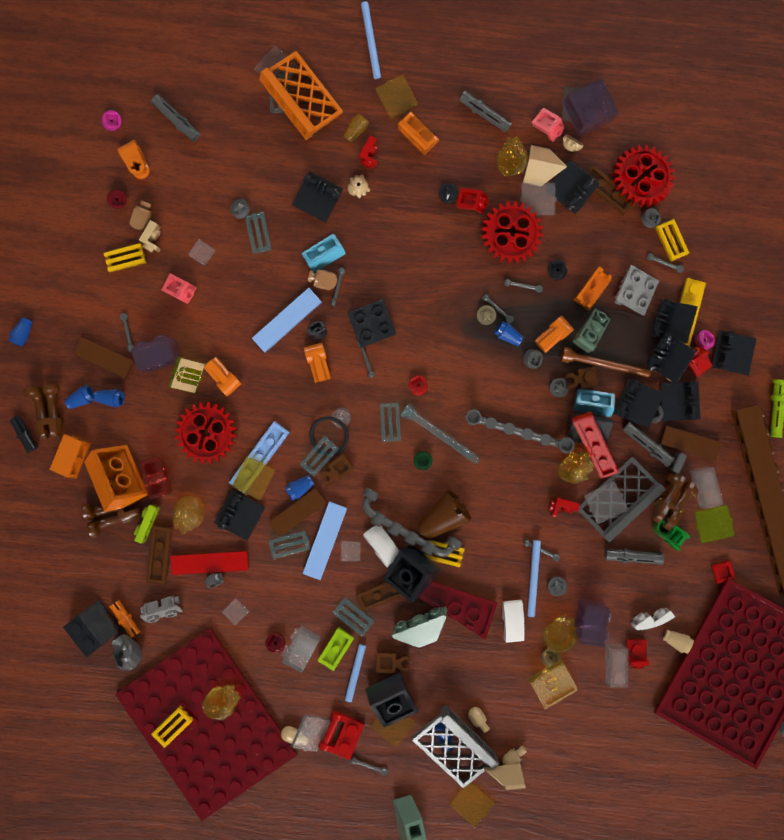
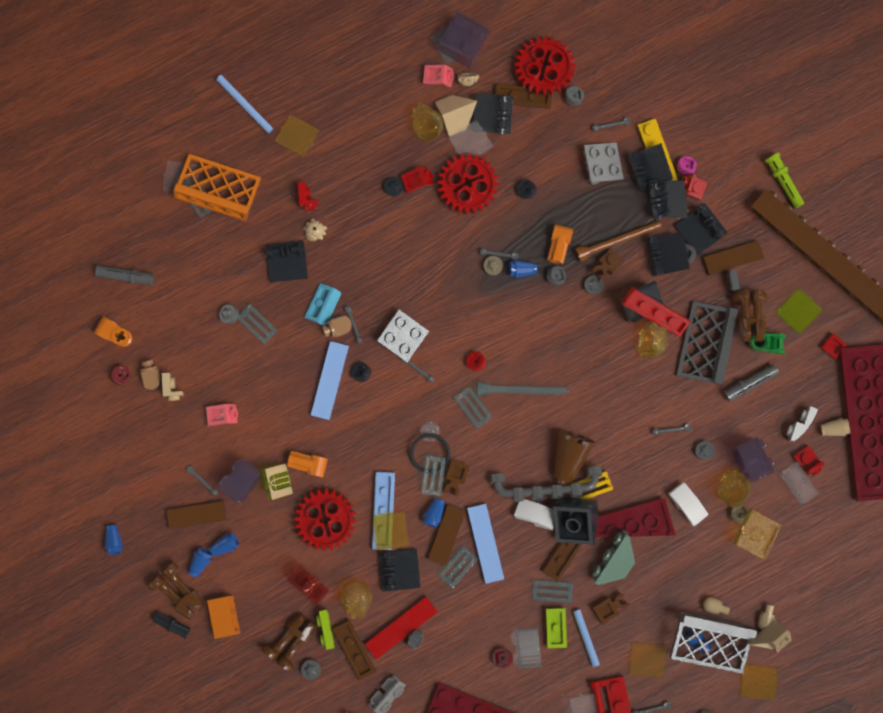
camera: 30 degrees left, 5 degrees down
(107, 255) = (161, 416): yellow tile -> none
(111, 120) = (72, 313): dark pink tile -> none
(113, 546) = (311, 669): none -> dark grey tile
(115, 477) = (274, 607): orange slope -> none
(201, 252) = (220, 372): clear tile -> none
(235, 611) = (450, 654): clear tile -> none
(317, 358) = (375, 395): orange piece -> none
(350, 551) = (513, 538): clear tile -> none
(356, 127) = (280, 183): clear yellow cone -> none
(391, 700) = (632, 639): black slope -> none
(417, 133) = (335, 154): orange hinge -> none
(423, 460) = (522, 421): dark green plate -> none
(468, 100) = (379, 100): dark grey pin -> none
(474, 417) = (630, 328): dark grey bar -> none
(507, 282) = (521, 215): dark grey hinge -> none
(534, 578) = (681, 457): light blue bar -> none
(566, 506) = (666, 378): red bracket -> none
(591, 331) = (588, 220): sand green slope -> none
(592, 288) = (566, 185): orange hinge -> none
(594, 401) = (631, 276): medium azure slope -> none
(606, 502) = (697, 353): clear piece -> none
(652, 447) = (699, 282): dark grey pin -> none
(665, 242) = (590, 94): yellow tile -> none
(706, 482) = (771, 284): clear brick -> none
(733, 352) = (717, 160): black hinge -> none

